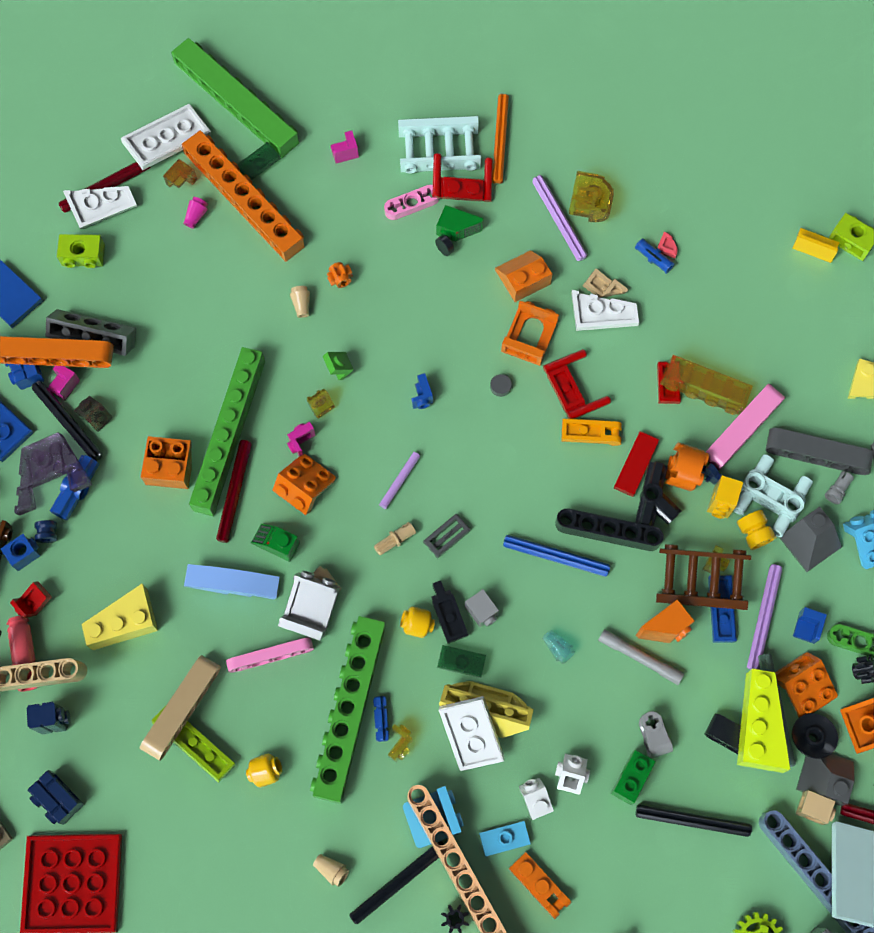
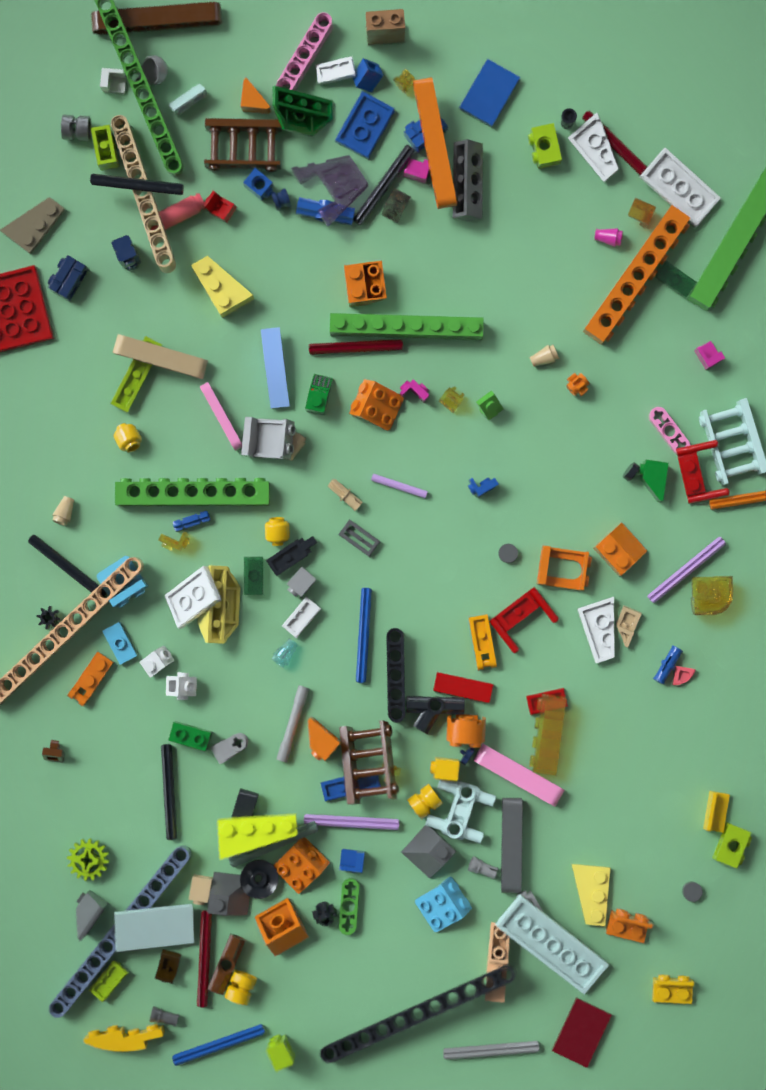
camera: 80 degrees right, 15 degrees up
(59, 219) = (568, 118): none -> black pin
(521, 618) = (301, 617): none -> white plate

